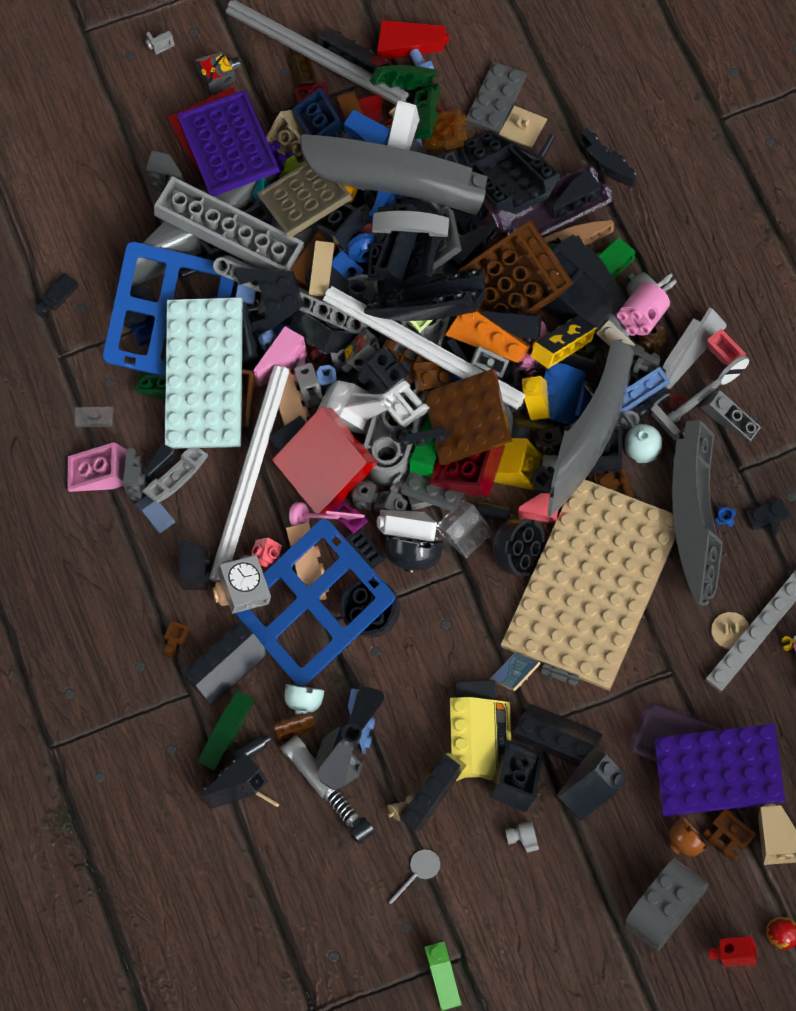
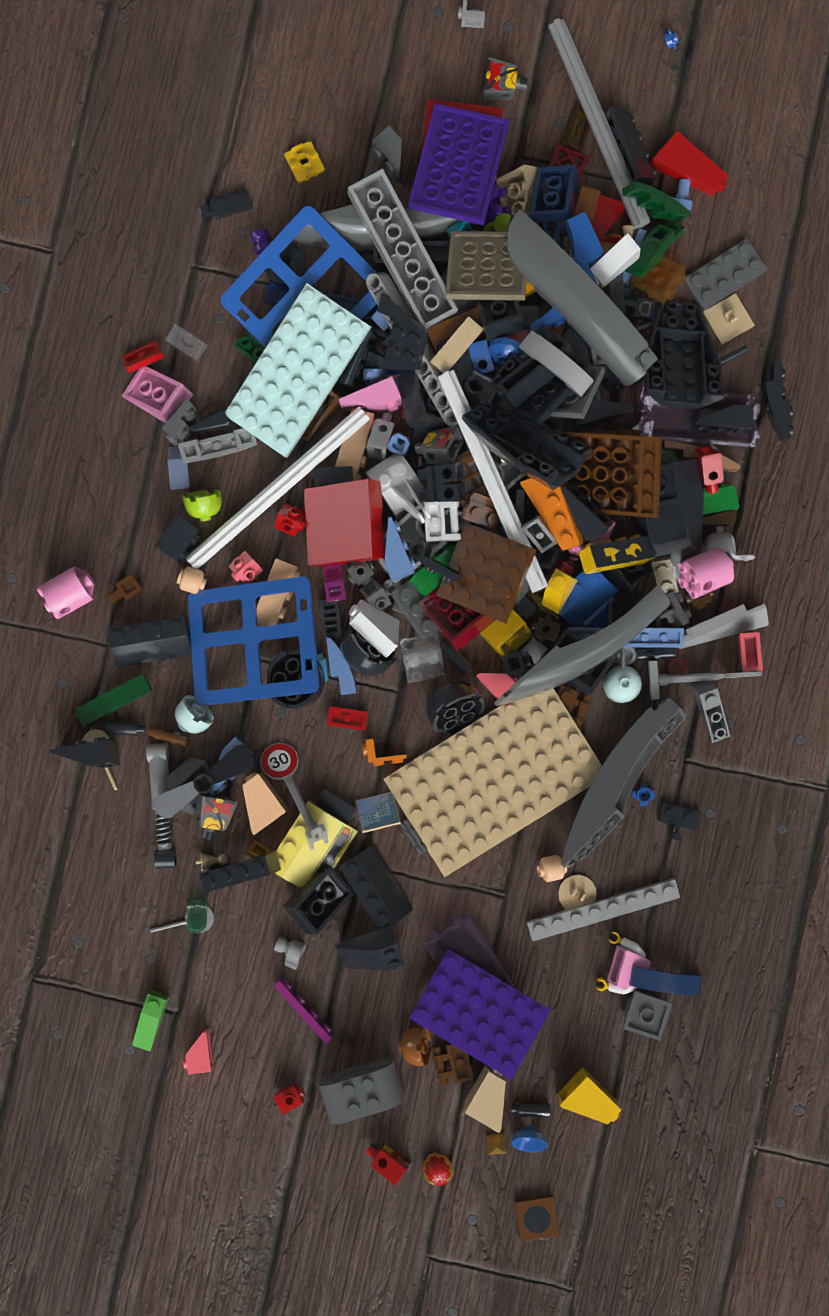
camera: 25 degrees right, 20 degrees up
(65, 448) = (142, 356): none -> red plate
(104, 302) = (260, 240): none -> dark purple wheel
(107, 224) = (308, 170): none -> yellow piece
(127, 666) = (67, 591): none -> bright pink cylinder
(195, 527) = (203, 504): none -> lime cylinder
(244, 583) = (205, 587): light grey brick -> none
(277, 492) = (290, 520): none -> red brick
(300, 514) = (295, 554): bright pink piece -> none
(376, 763) = (213, 813): none -> torso
(388, 455) = (396, 558): none -> medium blue slope
(401, 580) = (340, 668): none -> medium blue slope
(407, 686) = (280, 763): none -> piece
(412, 724) = (262, 802): none -> light nougat slope
(425, 865) = (197, 921): none -> clear green plate
(435, 616) = (347, 718): none -> red plate
(471, 627) = (369, 749): none -> orange bracket
(506, 975) = (199, 1056): none -> coral slope
(576, 877) = (298, 1002): none -> magenta plate
(589, 233) = (710, 467): none -> torso
(610, 955) = (289, 1097): none -> red brick
(625, 270) = (723, 519): none -> dark brown slope
(693, 621) = (551, 868): none -> light nougat head

